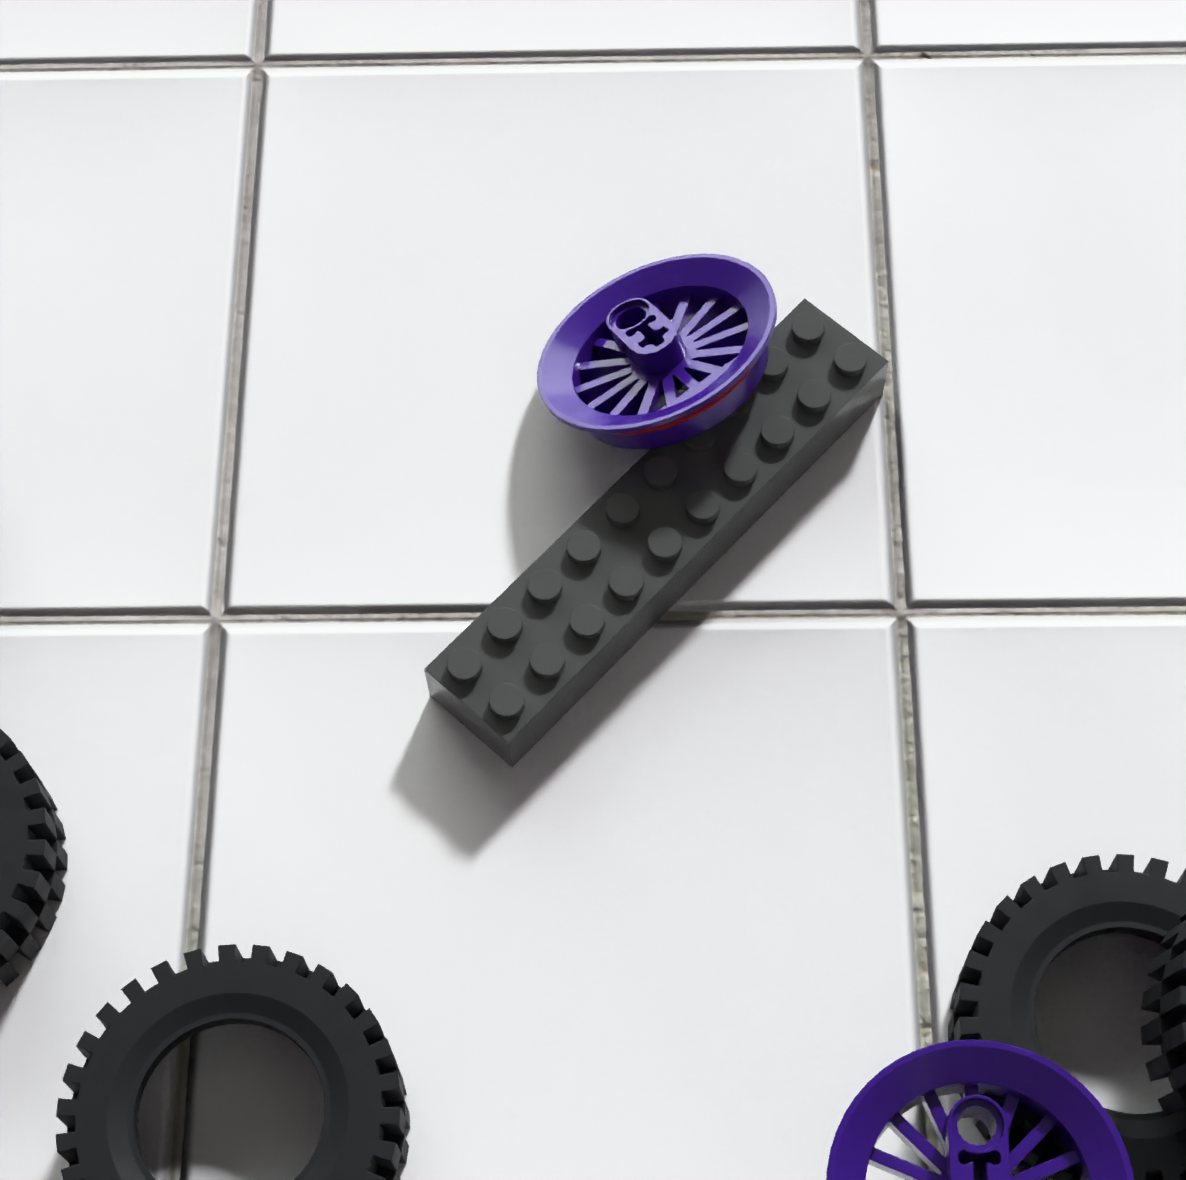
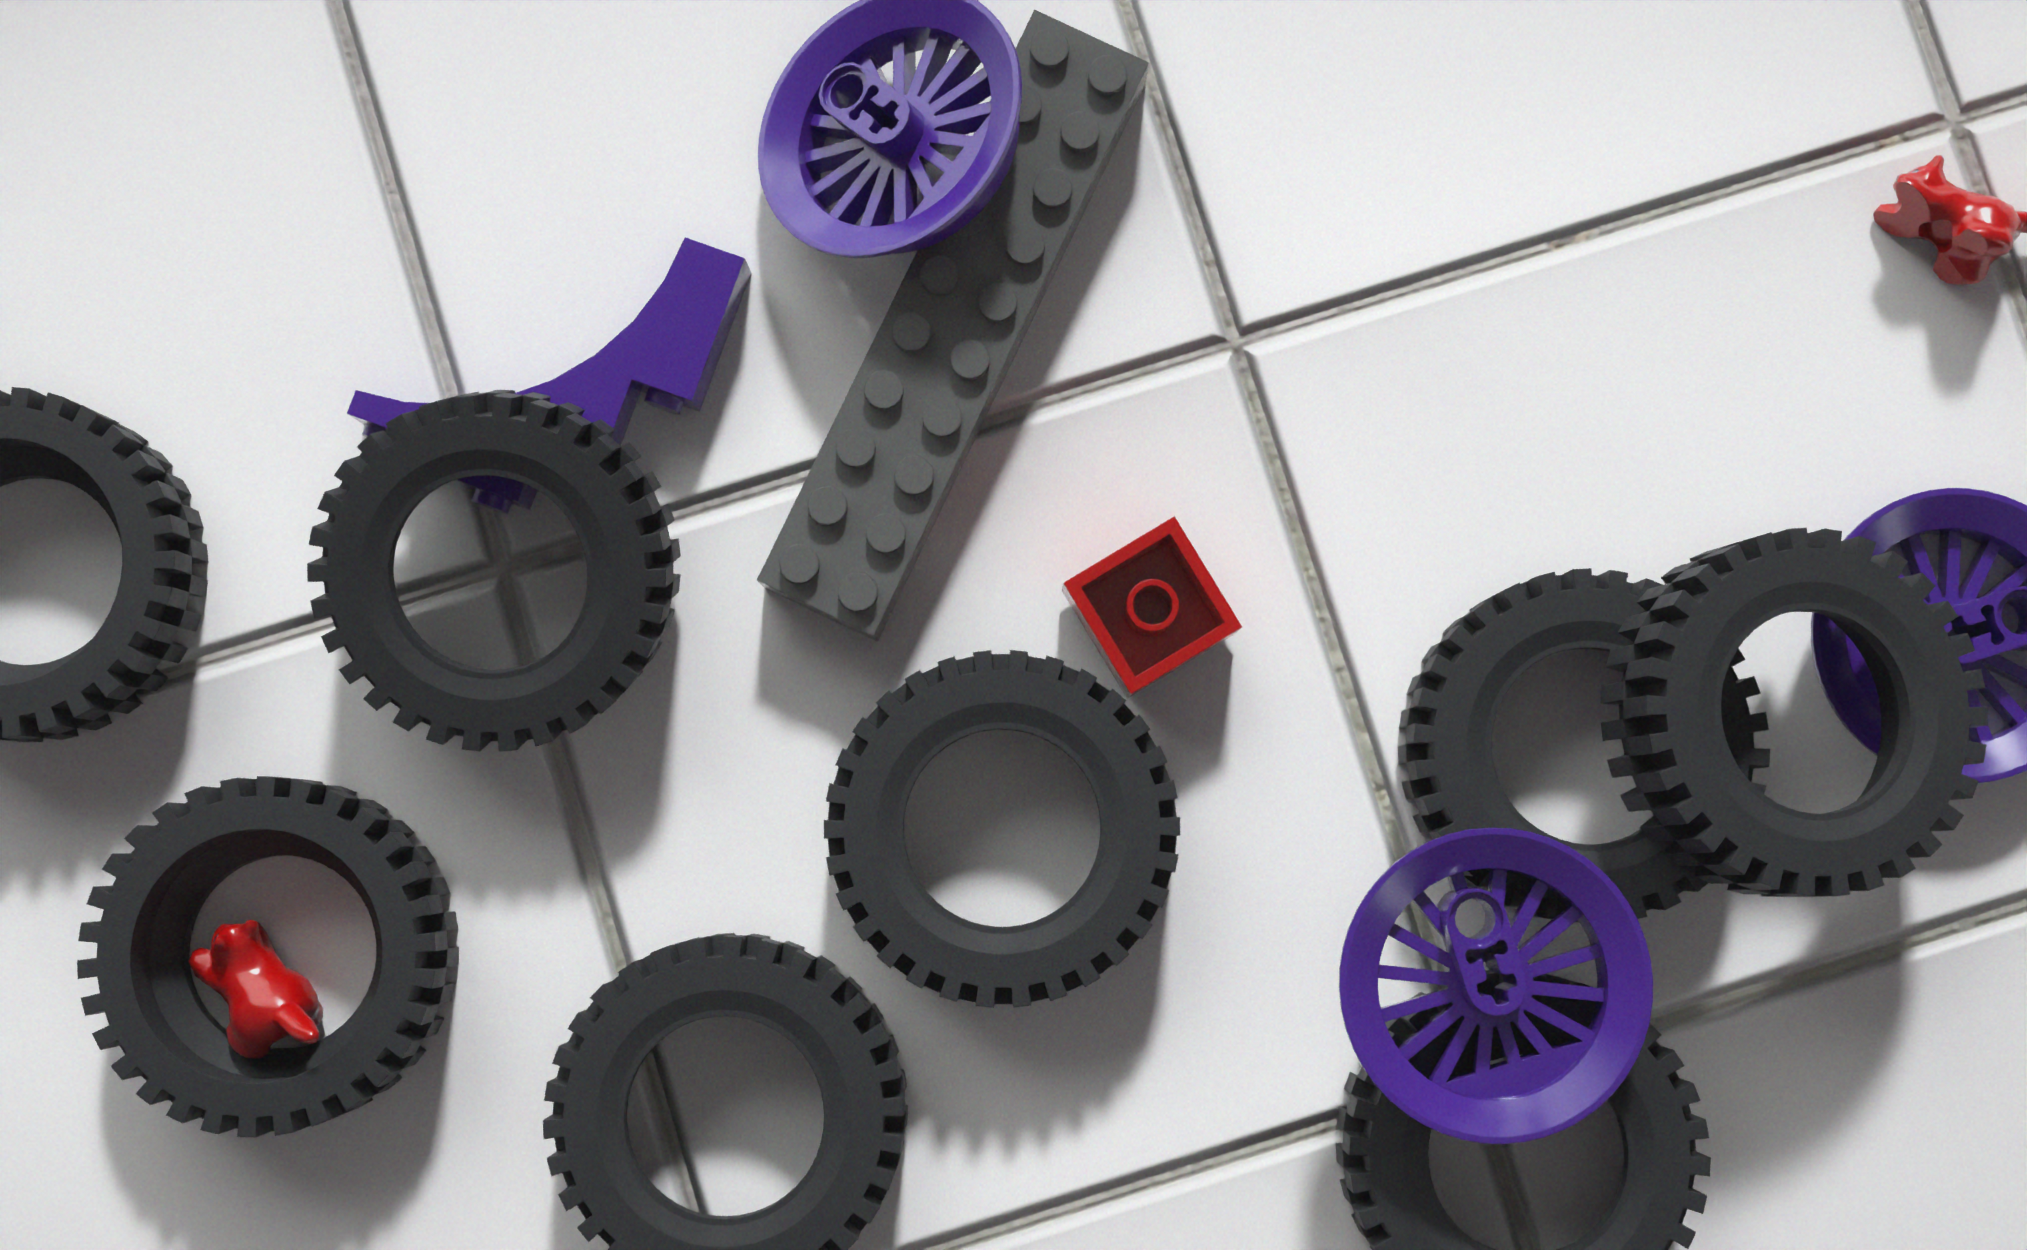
camera: 20 degrees left, 20 degrees up
(285, 672) = (591, 483): none -> black tyre
(333, 506) = (662, 352): none -> dark purple arch
(588, 1060) = (1020, 960): none -> black tyre
(760, 795) = (1151, 607): none -> red brick

